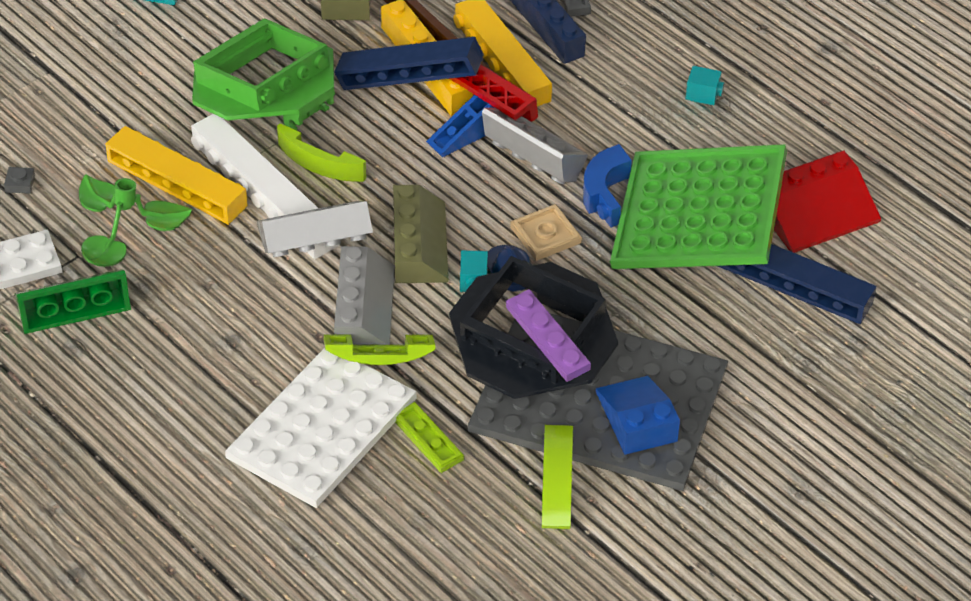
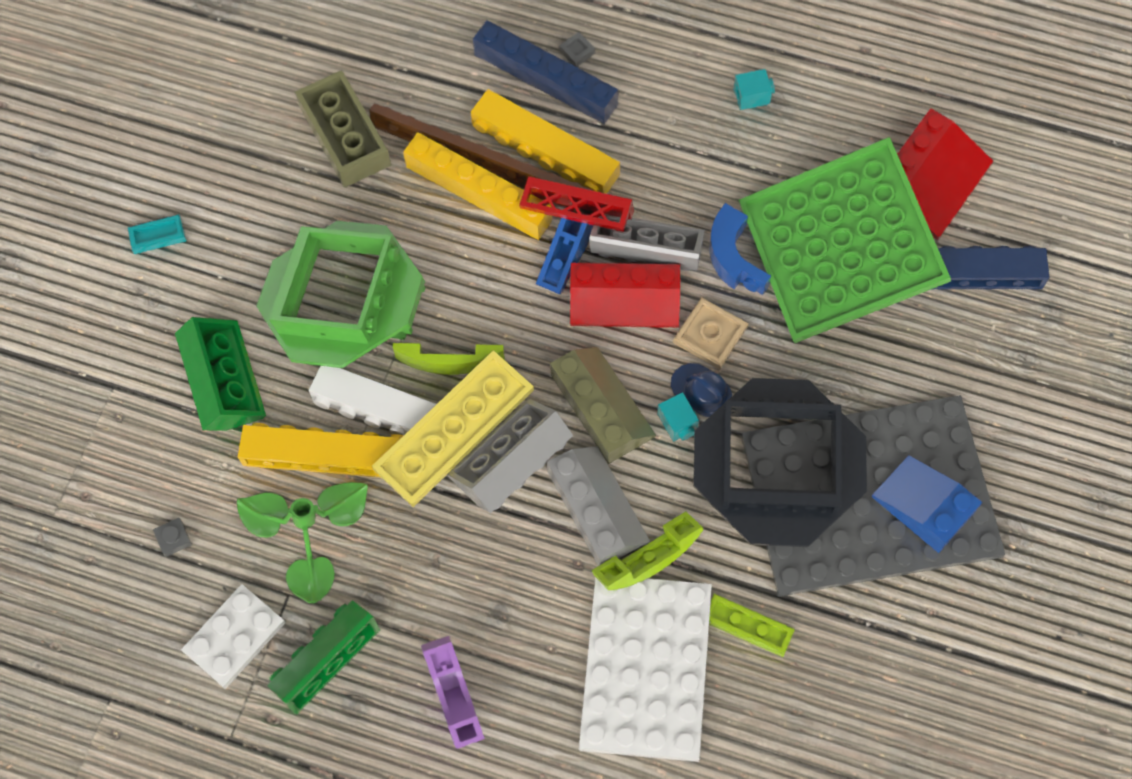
camera: 25 degrees left, 20 degrees up
(134, 90) = (219, 373): none -> green slope
(154, 369) = (452, 692): none -> medium lavender arch
(283, 191) = (453, 428): none -> light yellow plate
(409, 63) = (479, 212): dark blue brick -> none
(492, 174) = (625, 295): none -> red slope
(548, 335) = (816, 475): medium lavender plate -> none
(557, 477) = (895, 607): lime slope -> none

